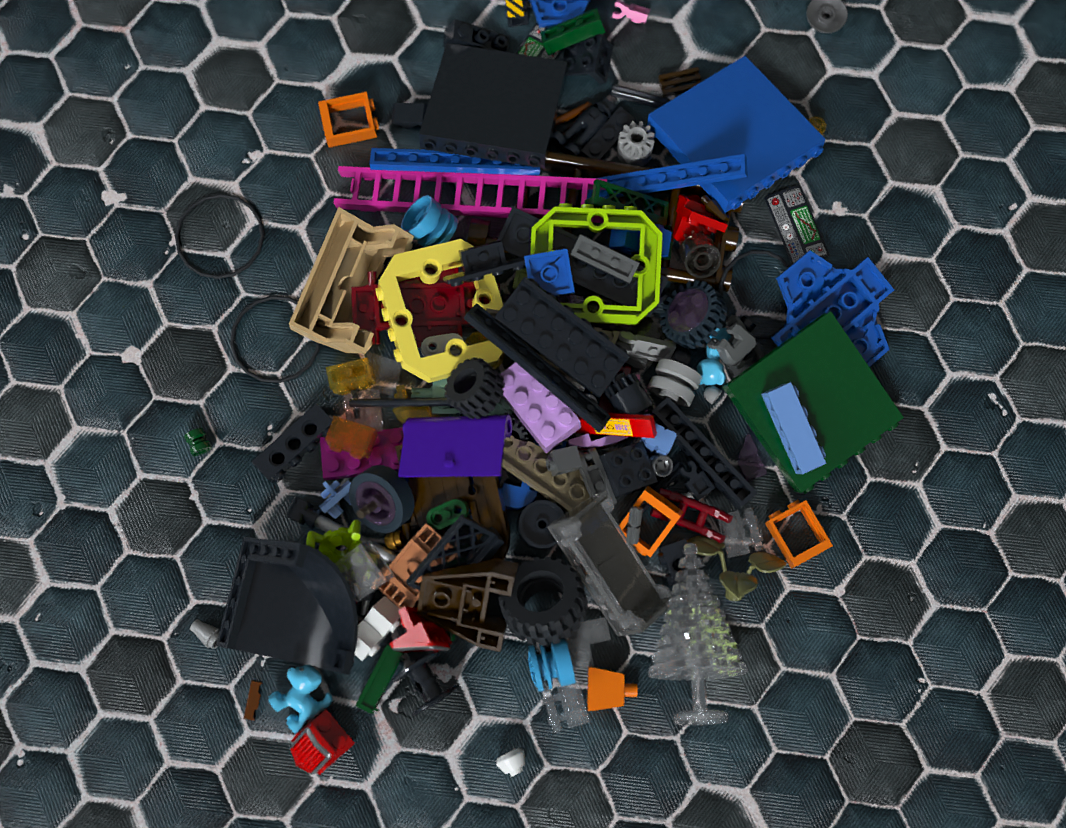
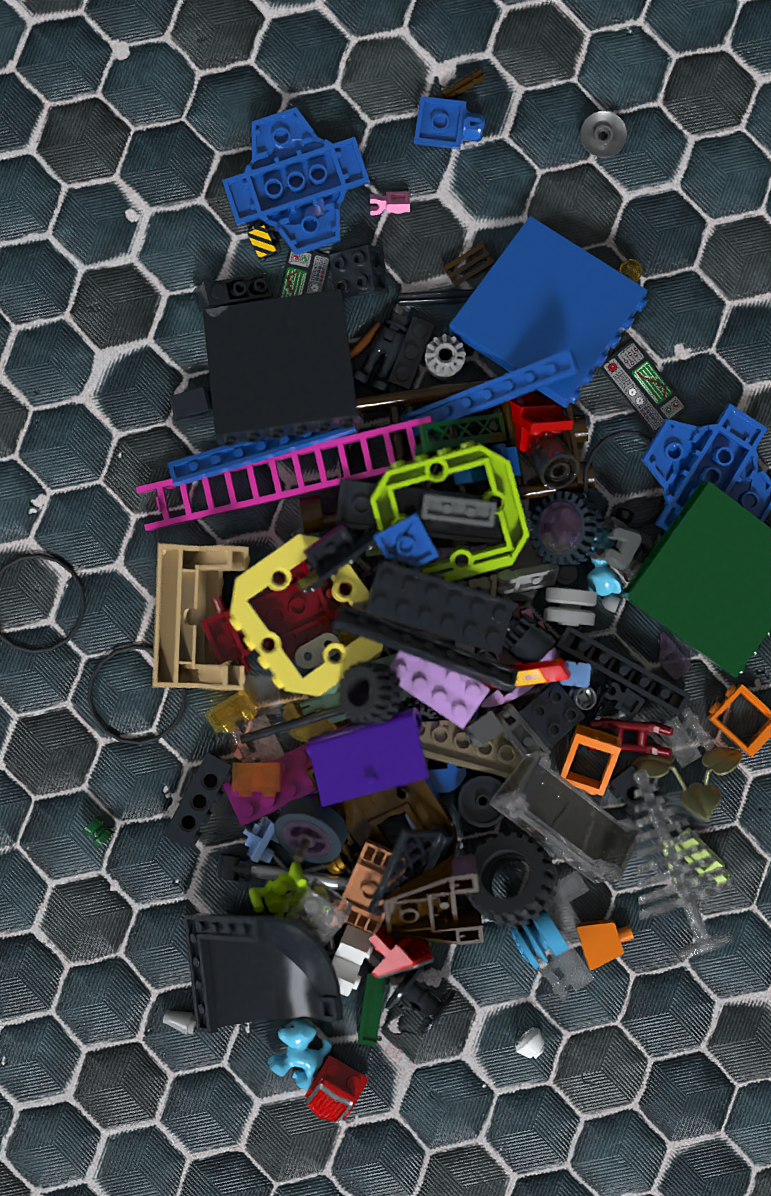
camera: 15 degrees left, 10 degrees up
(252, 700) = (251, 1069): reddish brown piece -> none
(345, 103) = (106, 443): orange window -> none
(429, 222) = (258, 525): dark azure wheel -> none
(448, 513) = (385, 823): dark green plate -> none
(572, 31) = (334, 251): dark green container -> none
(634, 520) = (577, 772): dark grey piece -> none
(714, 208) = (553, 407): dark brown bar -> none
(793, 428) = (708, 618): medium blue brick -> none

